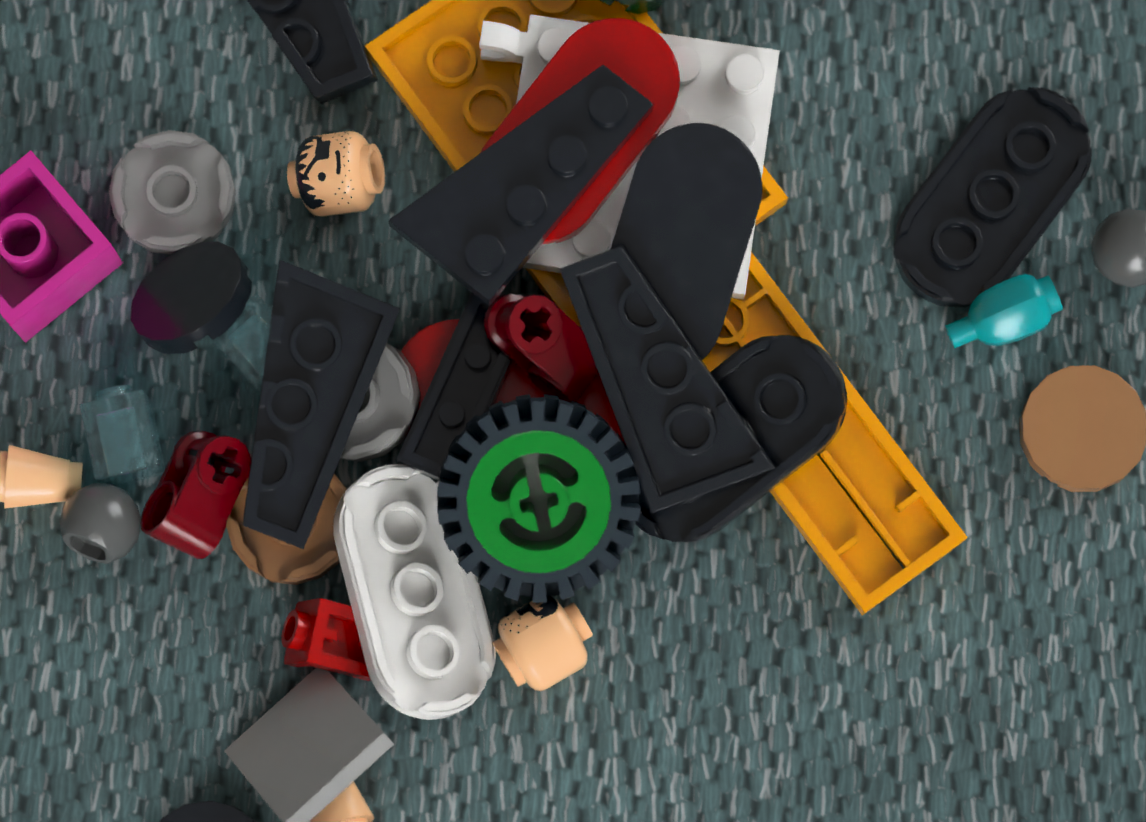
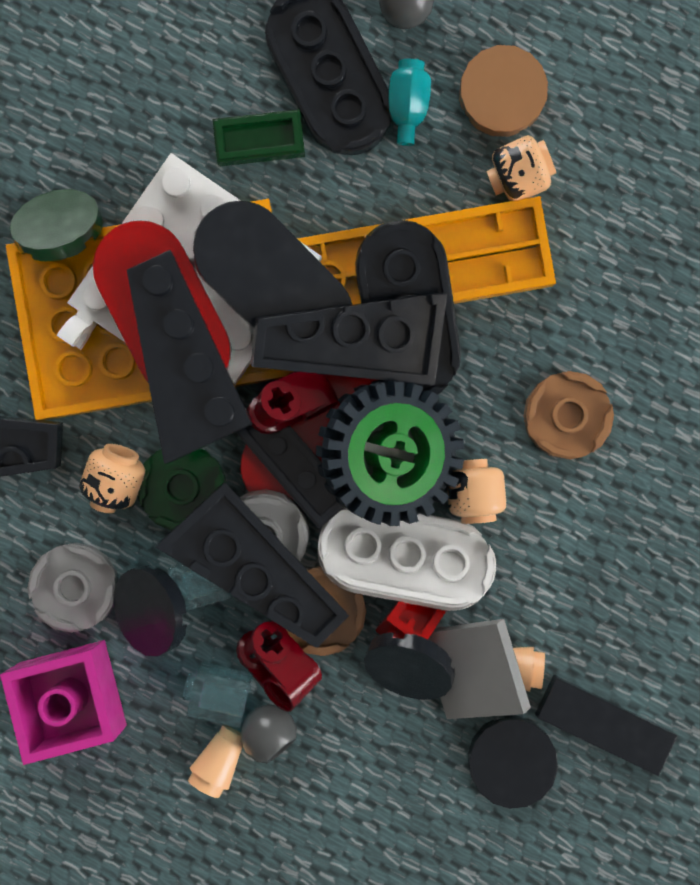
camera: 65 degrees left, 10 degrees up
(273, 658) = (410, 666): none -> black tile
(395, 280) = (191, 482): none -> dark green tile
(690, 740) = (553, 421): none -> medium nougat tile
(861, 150) = (258, 137): none -> dark green tile
(990, 497) = (521, 169): none -> light nougat head

